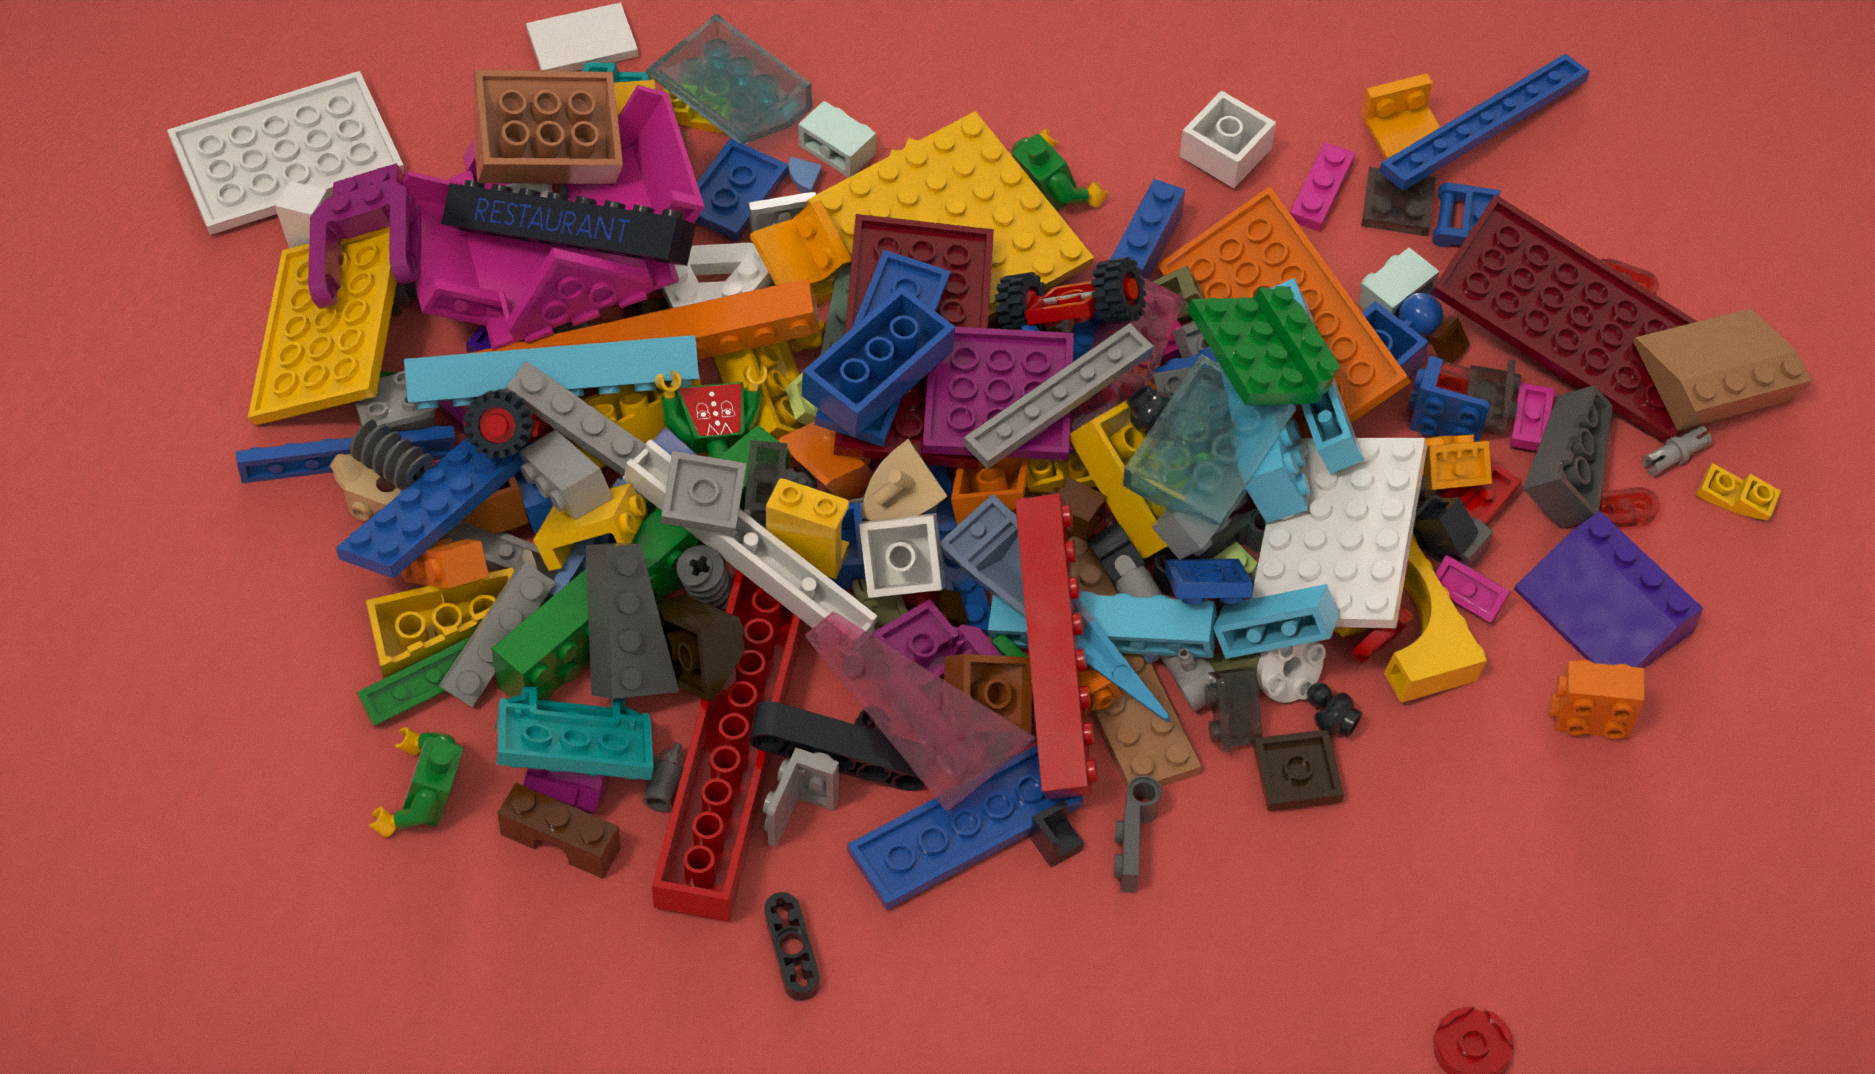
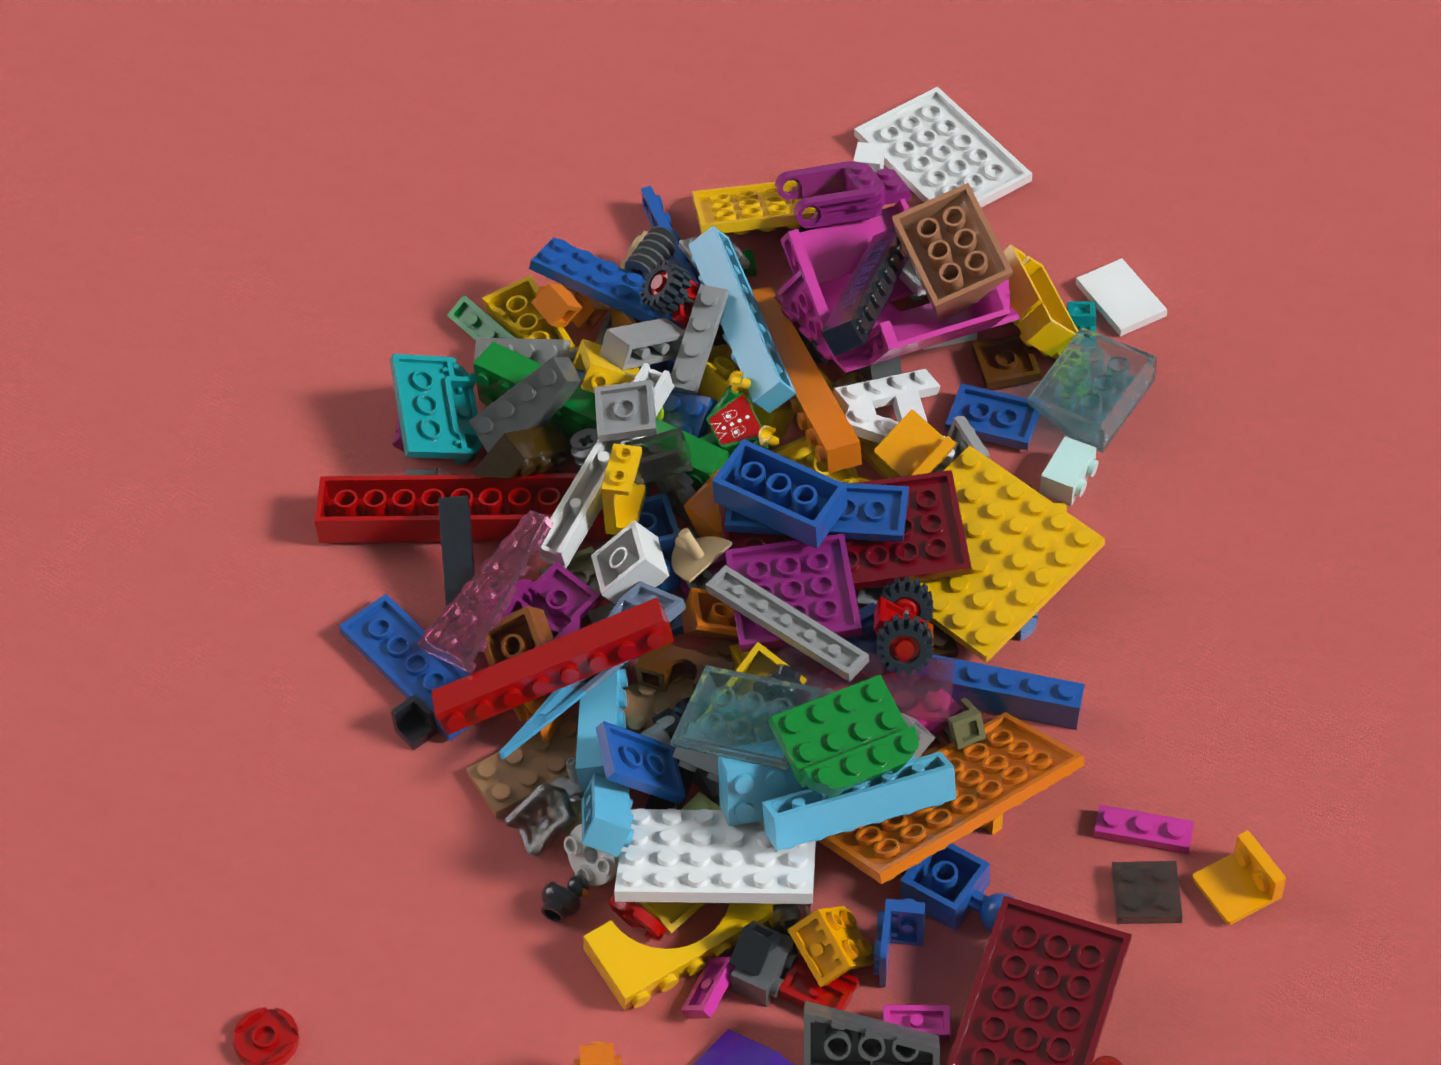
camera: 85 degrees right, 5 degrees down
(429, 782) = (401, 340): green torso -> none
(584, 838) = (365, 442): reddish brown arch -> none
(787, 962) = (308, 570): black beam -> none
(803, 777) = (415, 546): light grey bracket -> none
(804, 174) = (1027, 460): medium blue tile -> none
(1052, 173) = (1074, 610): green torso -> none
(1127, 831) = (425, 771): dark grey plate -> none
(1227, 139) = (1159, 739): white brick -> none
(1298, 770) = (503, 880): dark brown plate -> none
(1397, 281) = (1032, 886): light aqua brick -> none
(1449, 340) = (977, 941): reddish brown tile -> none
(1453, 377) = (937, 949): clear red plate -> none
(1475, 202) = (1150, 956): blue plate -> none
(1483, 122) = (1262, 947): blue plate -> none
(1496, 388) = (927, 984): clear smoke bracket -> none

